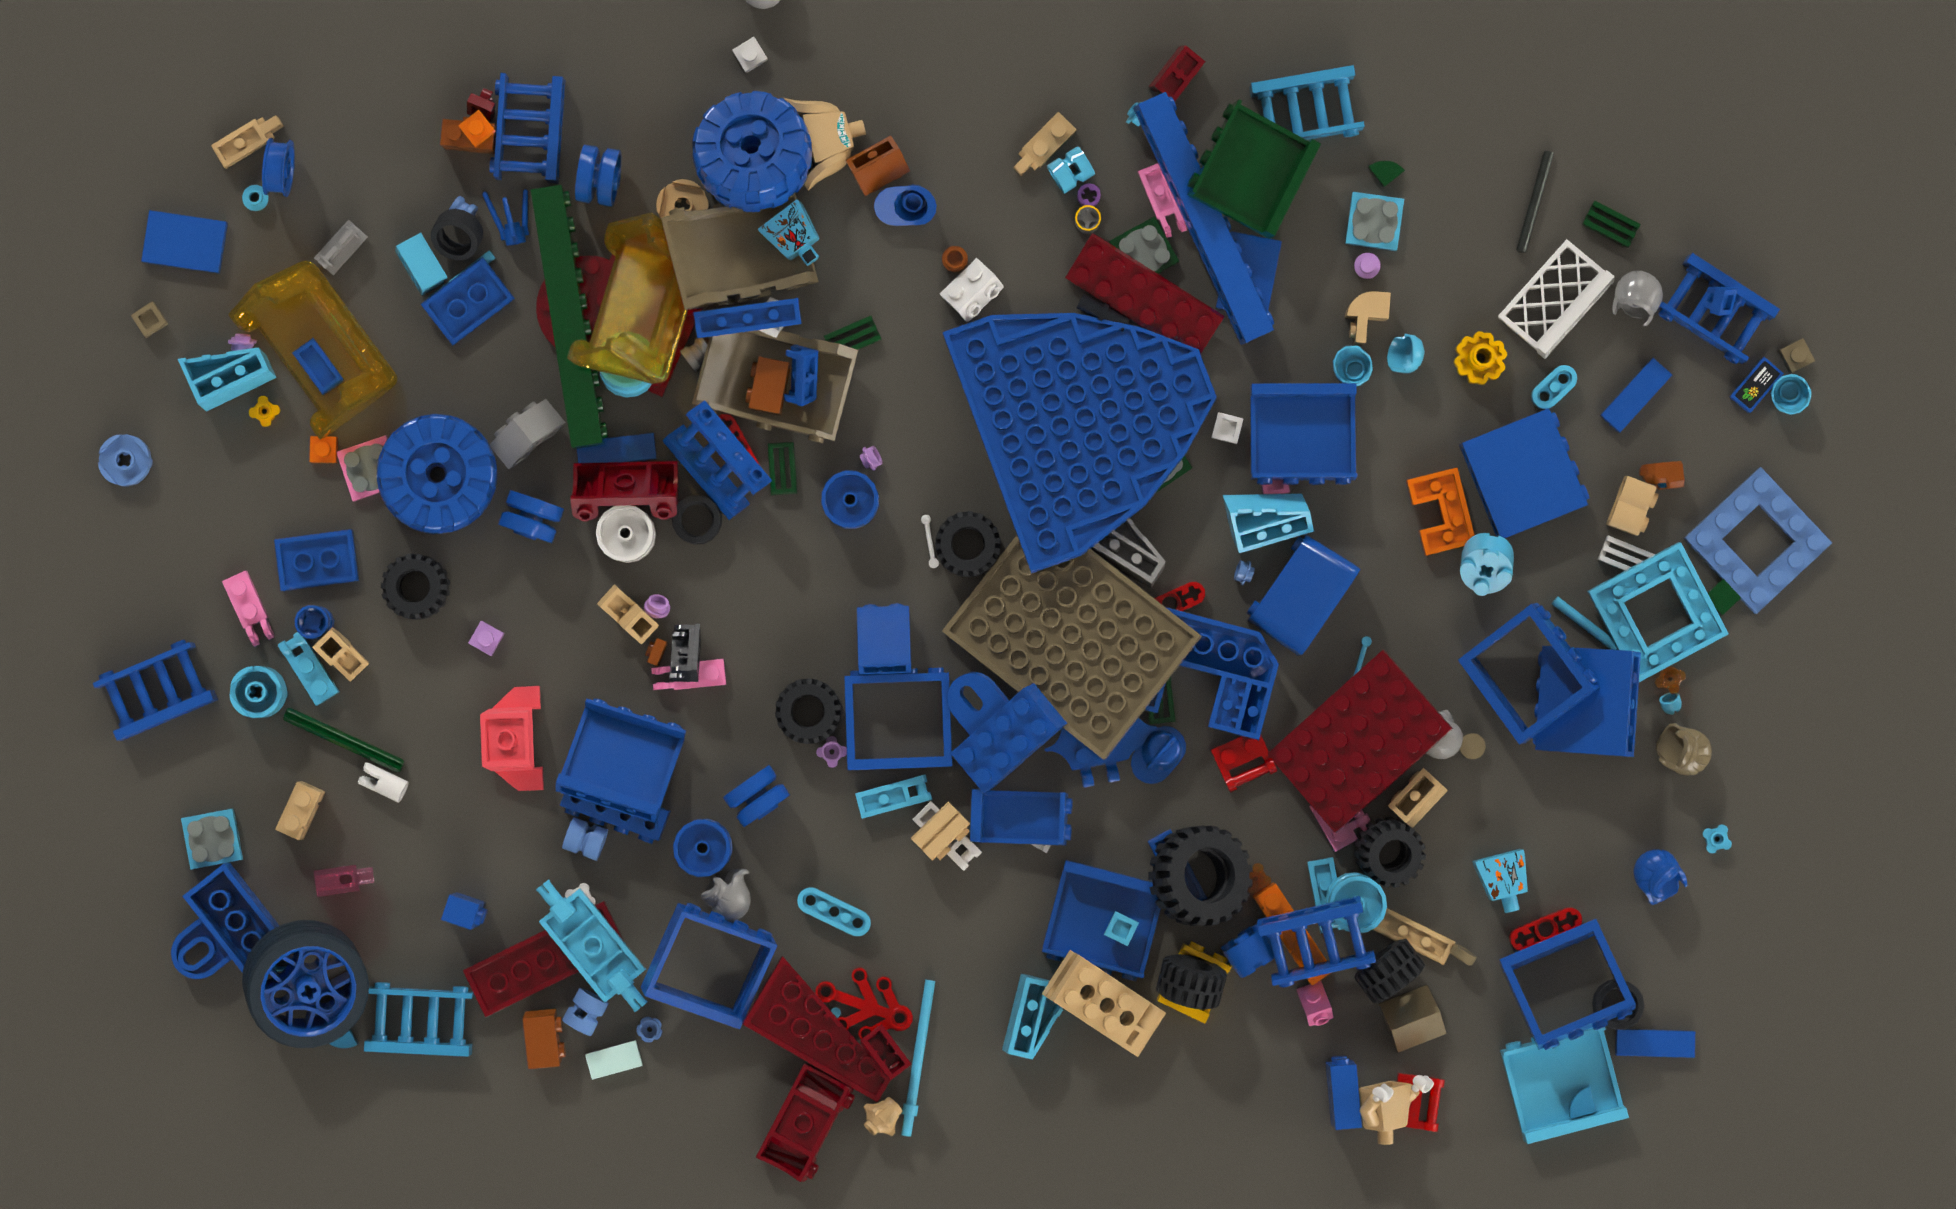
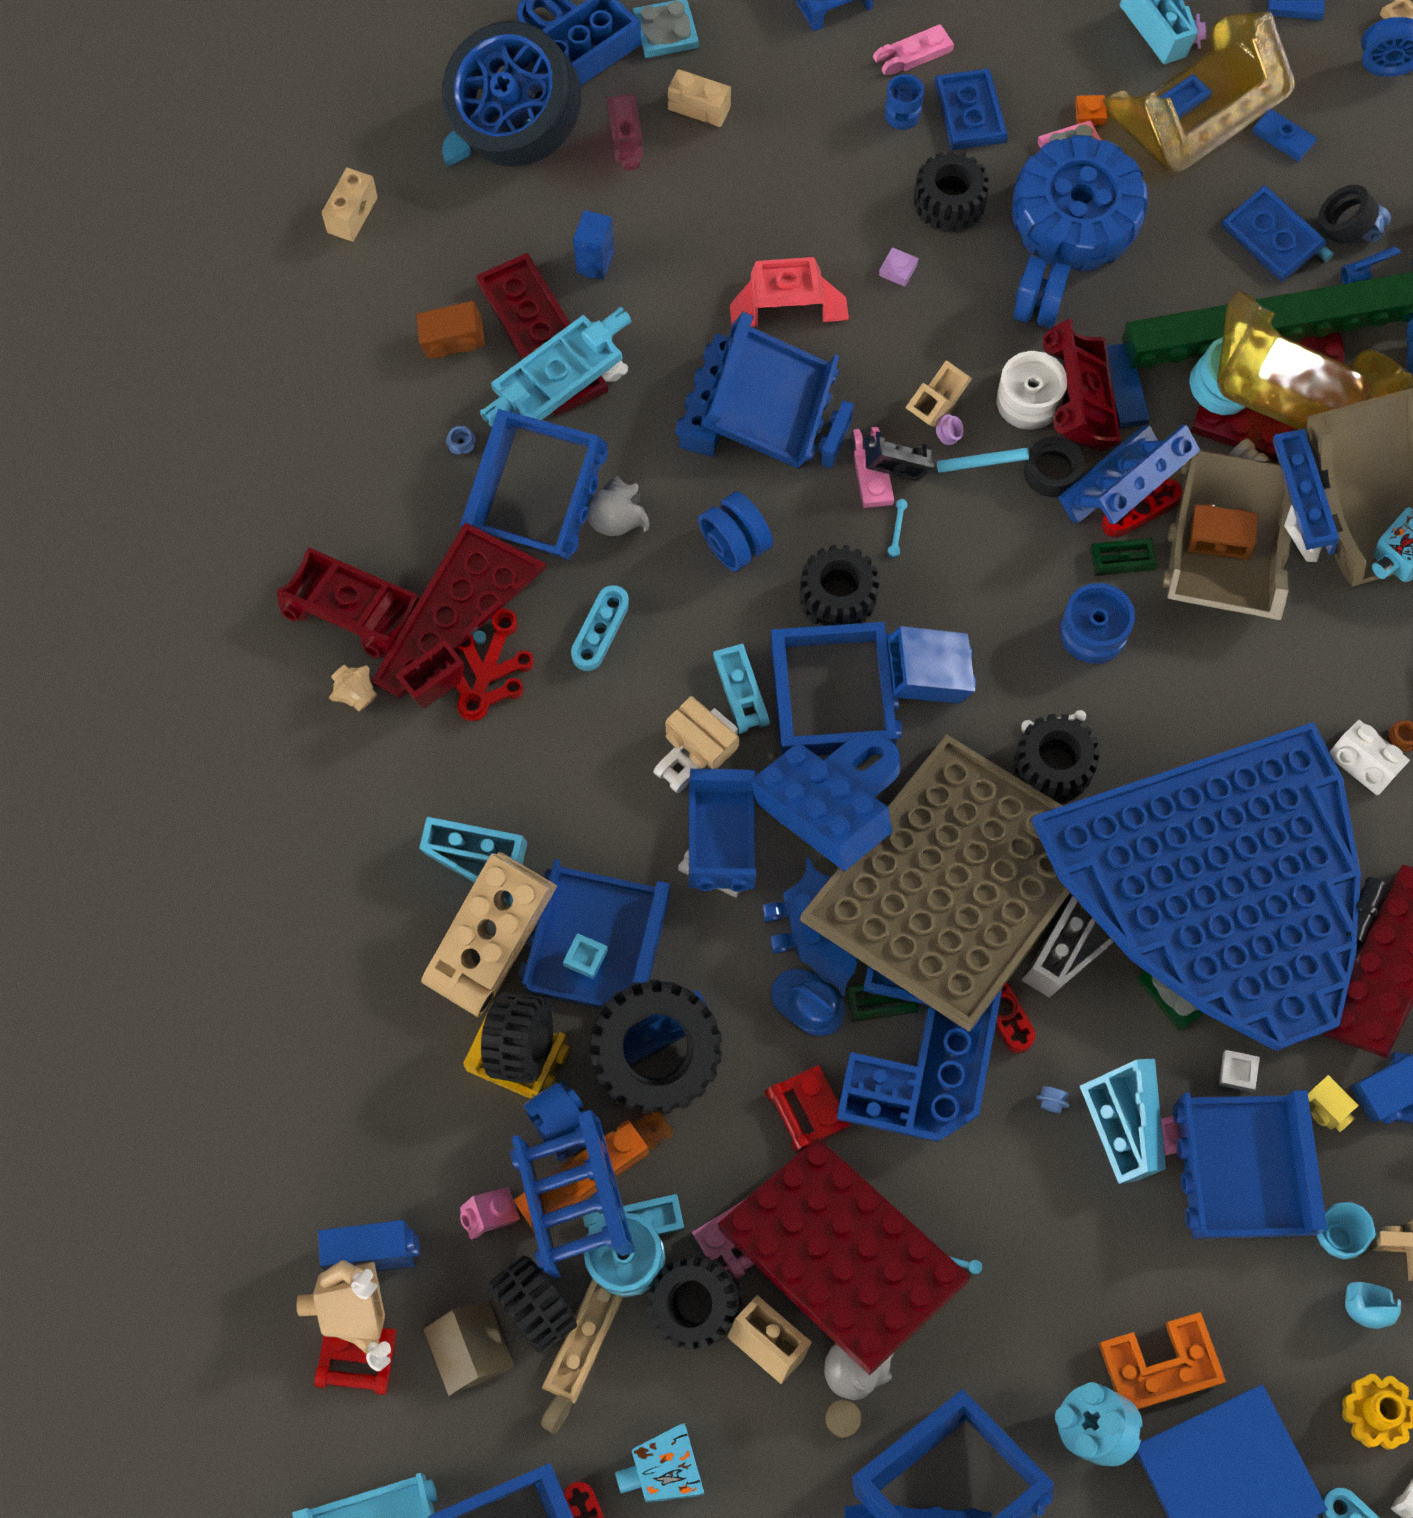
camera: 90 degrees right, 20 degrees down
(243, 691) = (825, 54): medium azure brick -> none
(260, 204) = (1351, 40): medium azure plate -> none
(272, 411) = (1125, 55): yellow plate -> none
(309, 669) = (851, 106): medium azure plate -> none
(339, 652) = (878, 120): tan brick -> none
(340, 247) = (1315, 118): light grey hinge -> none
(343, 740) = (777, 139): dark green axle -> none
(359, 276) = (1284, 135): none -> blue plate
(387, 785) = (732, 175): white hinge -> none
(404, 1131) = (349, 204): none -> tan brick
(421, 264) = (1309, 184): medium azure hinge -> none
(431, 1043) = (446, 203): dark azure fence -> none
(526, 432) = (1136, 284): light grey brick -> none
(585, 838) = (678, 364): medium blue wheel -> none
(590, 1003) = (477, 370): medium blue wheel -> none
(614, 1059) = (426, 407): light aqua tile -> none
(656, 651) = (897, 430): dark orange plate -> none
(668, 709) = (839, 425): none -> blue plate
(690, 581) = (983, 460): none -> medium azure bar
(718, 847) = (672, 481): blue wheel -> none
(726, 652) = (894, 550): none -> medium azure hinge
(803, 375) = (1242, 560): blue hinge -> none
(832, 759) = (793, 612): lavender plate -> none
(871, 458) = (1148, 650): lavender plate -> none
(872, 328) = (1303, 626): dark green tile -> none
(910, 1108) = (363, 721): medium azure bar -> none
(1256, 363) = (1331, 1105): none -> light yellow brick
(1303, 595) = (1033, 1174): blue windscreen -> none

